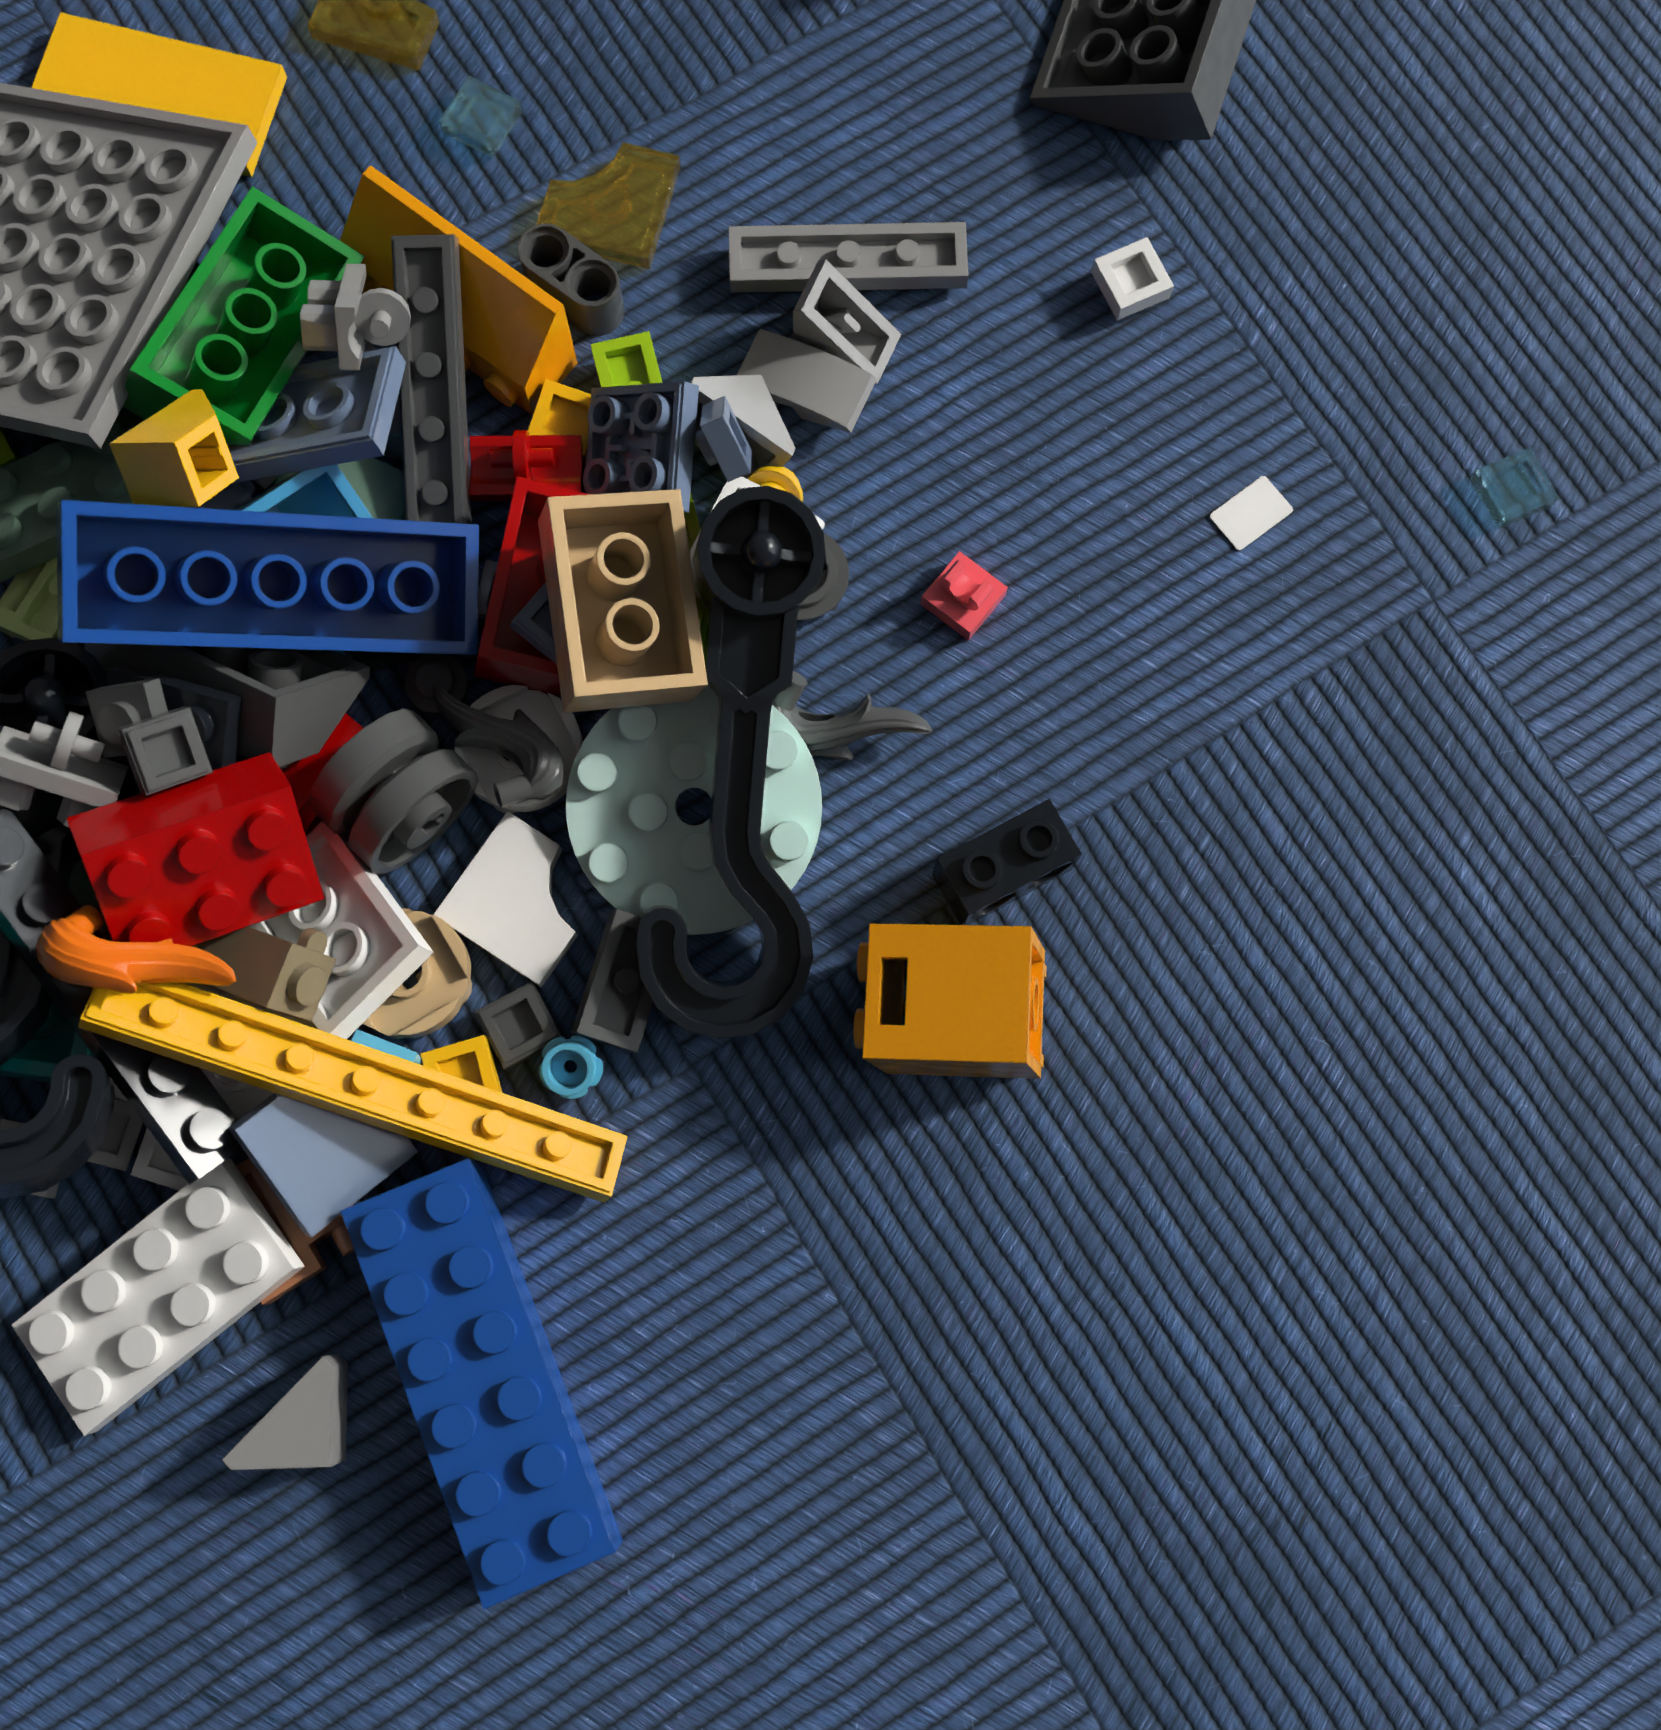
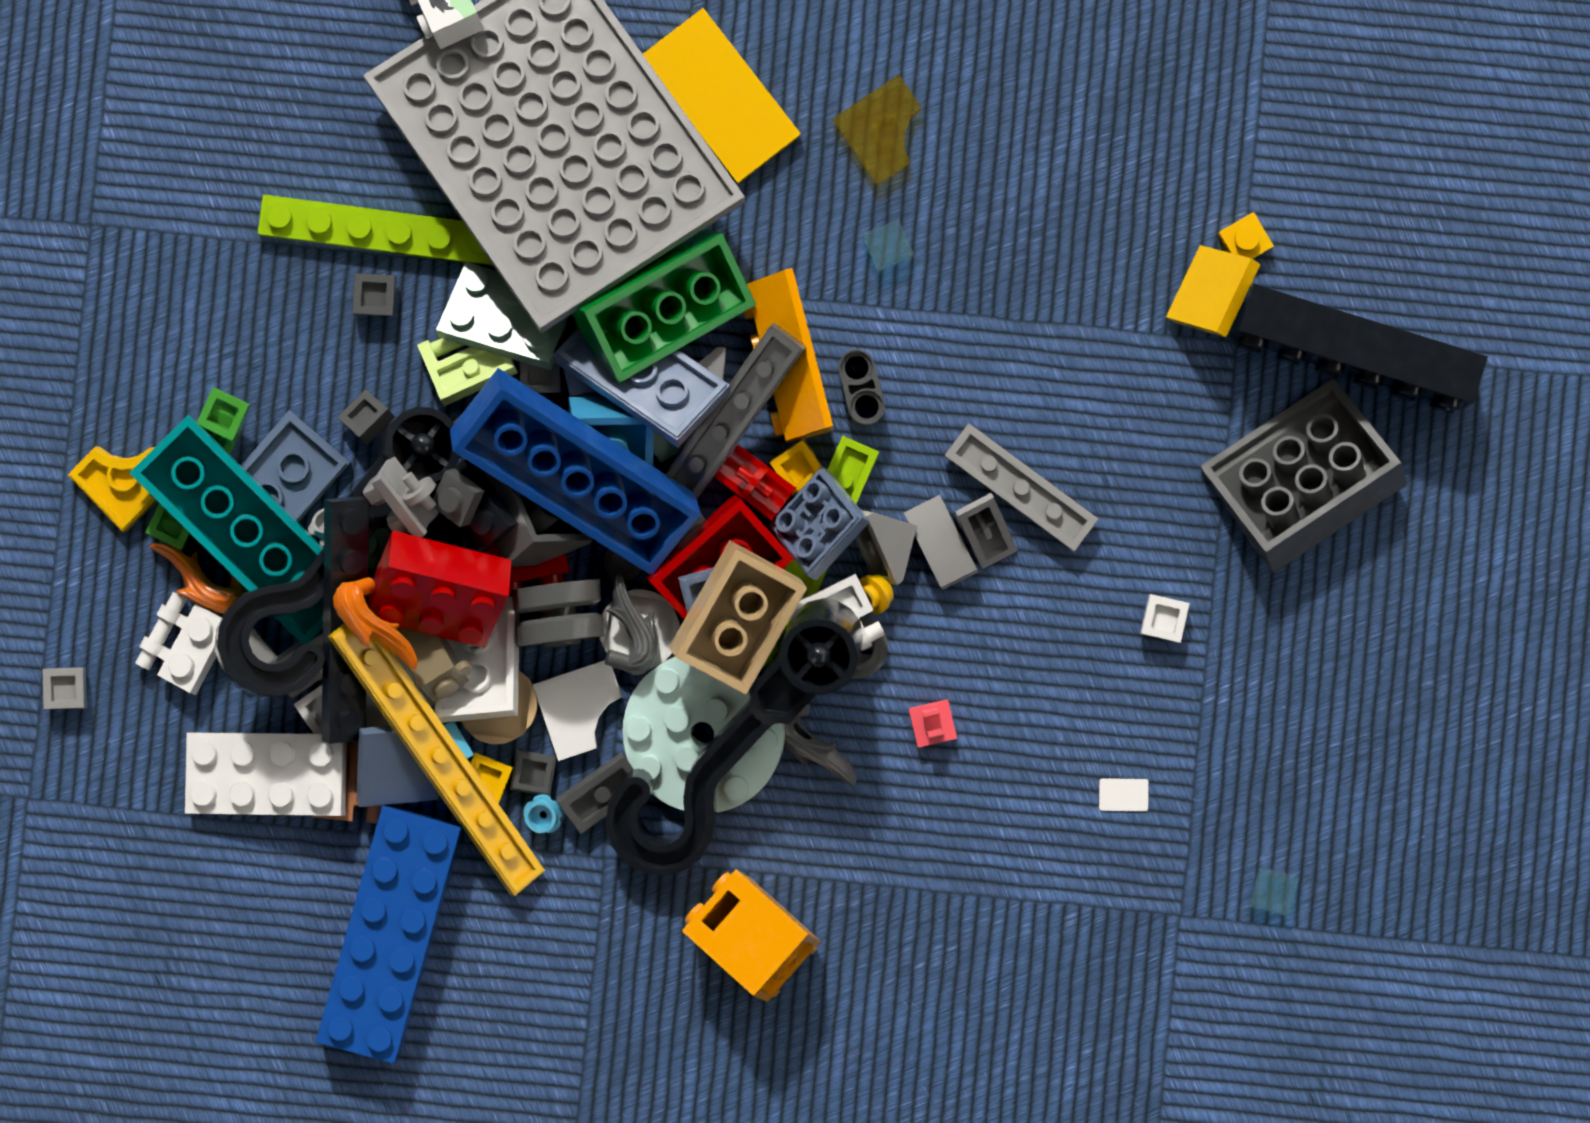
camera: 40 degrees right, 10 degrees up
(164, 750) = (462, 531): dark grey tile -> none
(176, 455) = (575, 385): yellow slope -> none
(303, 1427) = (289, 890): light grey slope -> none
(344, 318) = (731, 363): light grey hips -> none
(619, 207) = (917, 359): clear yellow tile -> none
(723, 439) = (862, 558): sand blue plate -> none
(1006, 863) = (836, 883): black brick -> none

